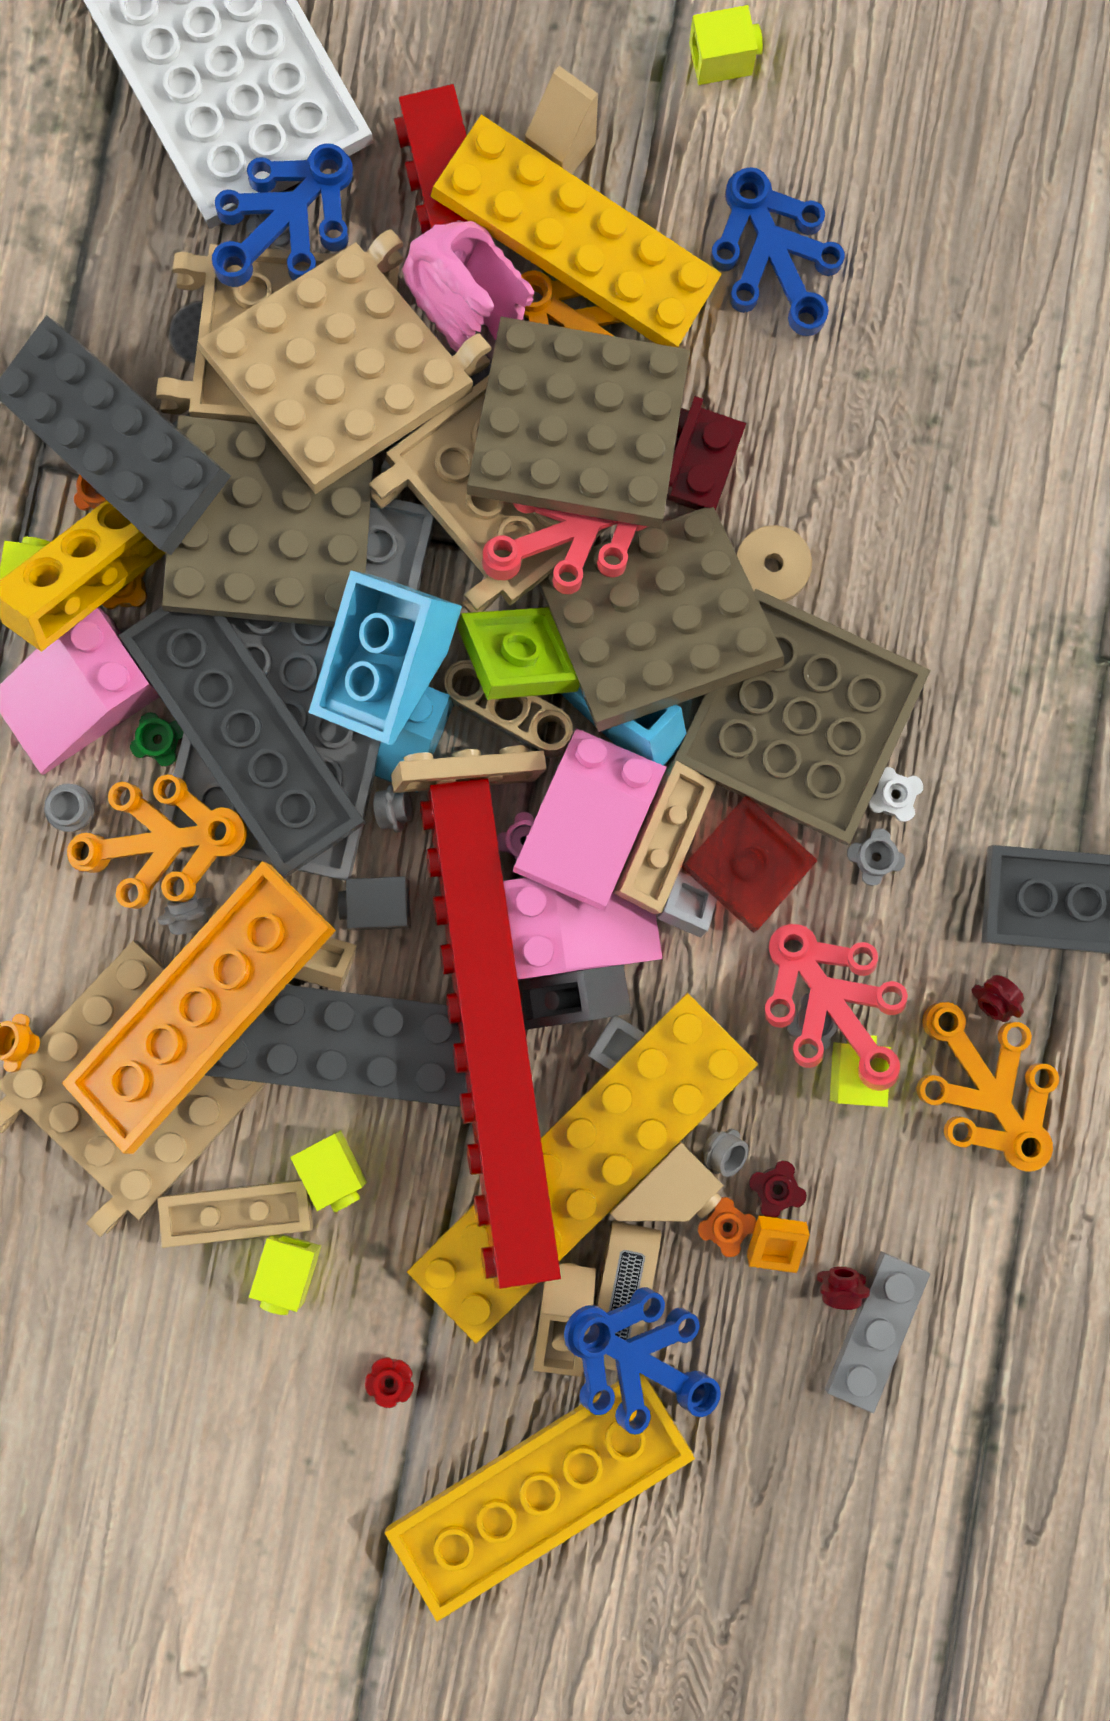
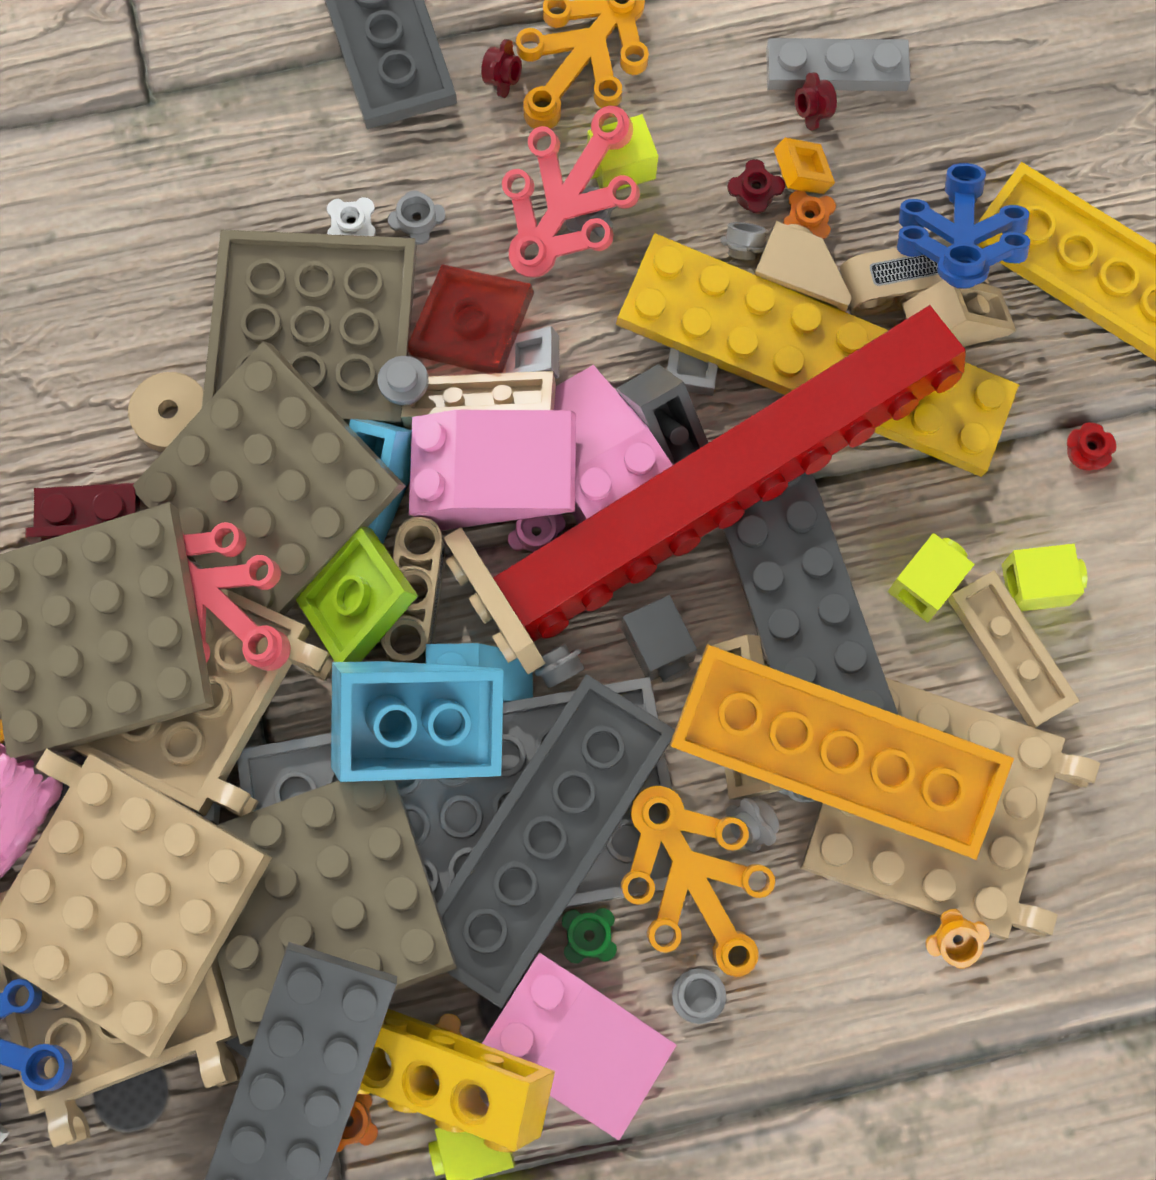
camera: 115 degrees left, 10 degrees down
(707, 773) = (403, 380): none -> light grey plate

